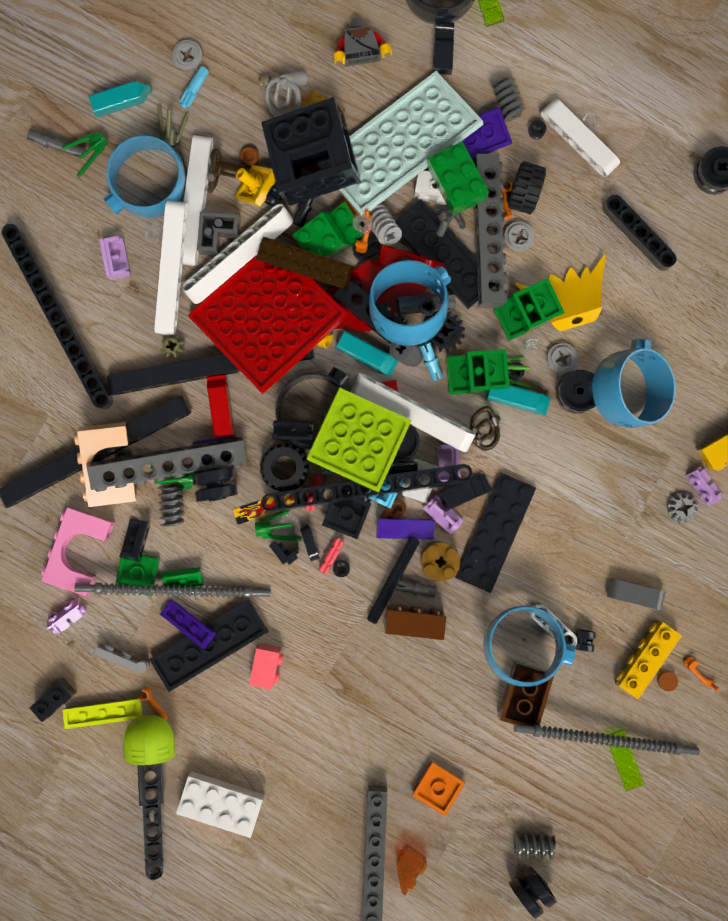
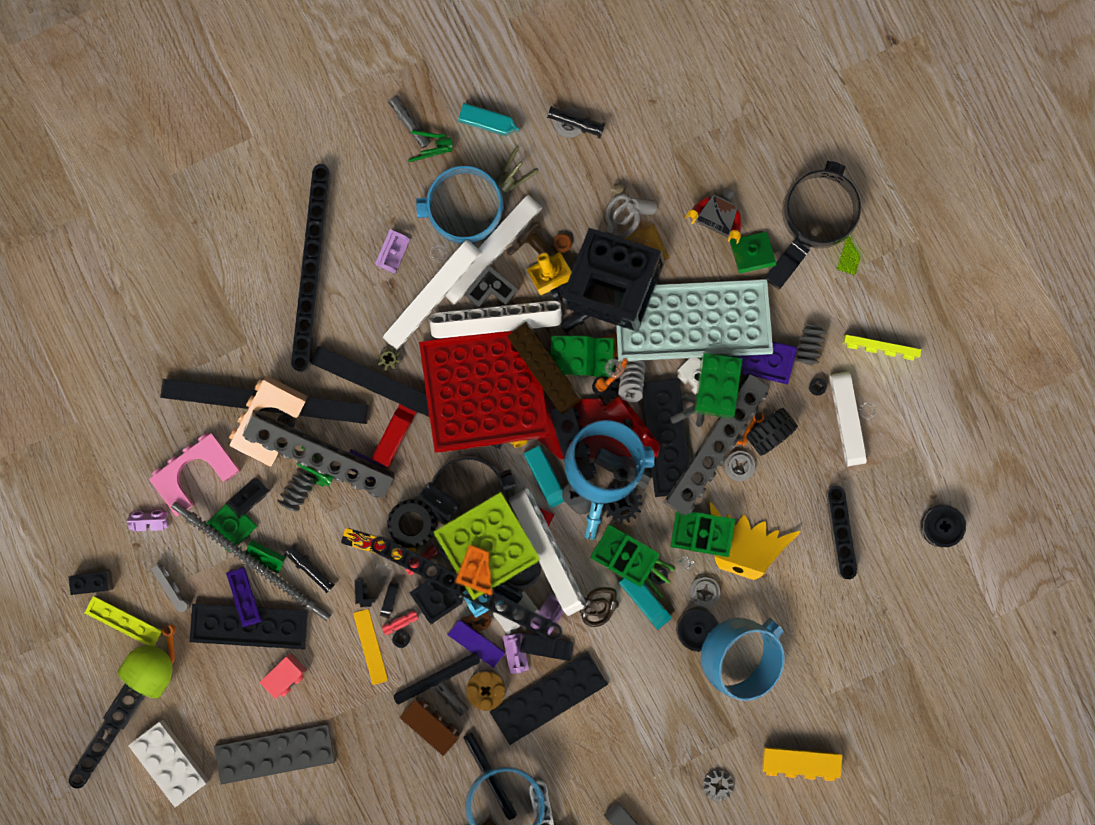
camera: 30 degrees right, 0 degrees up
(193, 87) = (555, 153): medium azure piece -> none
(201, 46) = (585, 124): none -> black pin
(215, 486) = (343, 501): black wheel -> none
(217, 561) = (302, 561): none -> black pin
(264, 528) = (361, 562): green plant -> none
(302, 735) = (274, 754): none -> dark grey plate
(320, 592) = (370, 647): none -> yellow sticker
(363, 466) = (475, 570): none -> orange wing
(409, 56) = (753, 252): none -> green plate
(498, 632) = (492, 780): none -> black axle
(573, 59) = (873, 346): none -> neon yellow plate
(709, 493) = (747, 771): lavender hinge -> none

